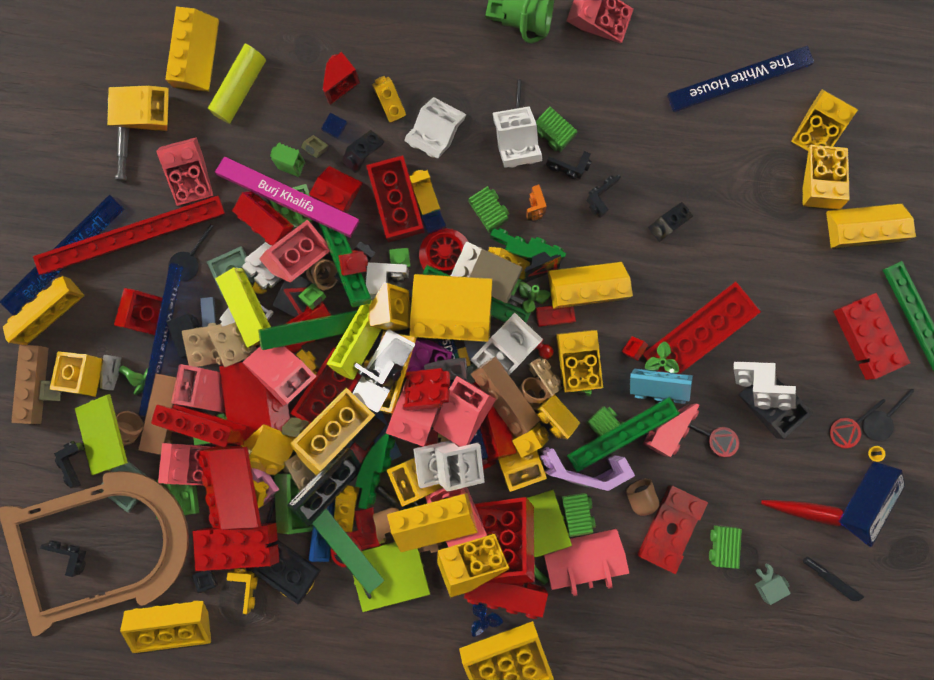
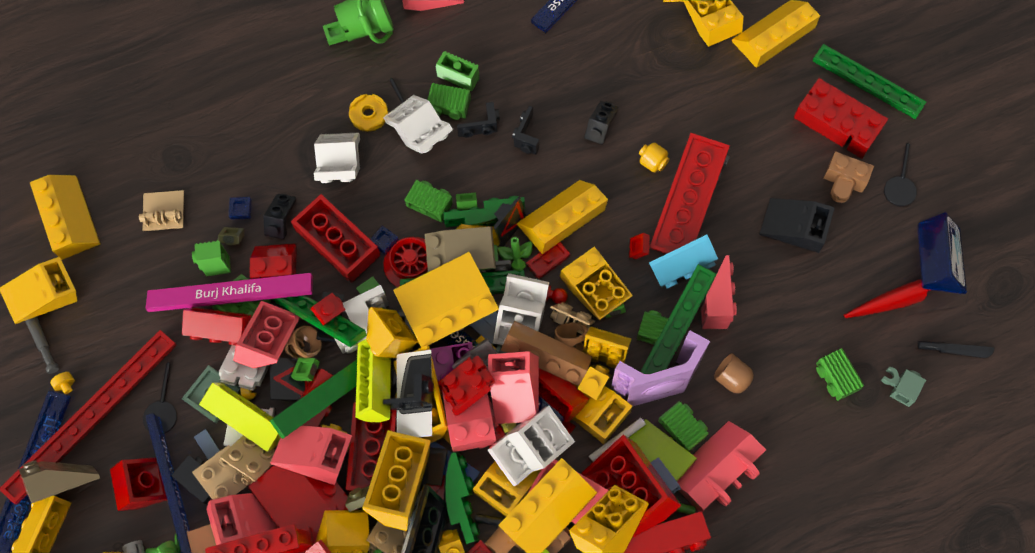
camera: 25 degrees left, 15 degrees down
(77, 274) = (52, 478): none -> dark tan slope
(122, 195) = (63, 382): none -> yellow tile
(185, 171) = (116, 326): coral slope -> none
(237, 83) = (125, 221): neon yellow brick -> none
(272, 91) = (162, 210): none -> tan hinge
(339, 77) = (222, 161): red slope -> none
(389, 98) = (279, 156): yellow bracket -> none
(424, 191) = (360, 218): yellow bracket -> none
(480, 110) = (370, 122): none -> yellow tile
(519, 227) = (466, 201): none -> bright green plate
(521, 493) = (627, 432): none -> white bar
(538, 204) = (471, 169): orange bracket -> none
(539, 557) = (666, 475): none -> sand blue piece
(577, 107) = (457, 71): none -> bright green brick
(663, 351) = (667, 232): bright green plant -> none
(665, 548) = (779, 366): red piece -> none
(694, 279) = (654, 157): none -> yellow head
(721, 441) = (771, 283): piece -> none
(765, 390) = (782, 210): white bracket -> none
(842, 389) = (847, 176): none -> medium nougat brick
(846, 432) = (876, 212): piece -> none
(877, 458) = (912, 210): yellow hinge -> none

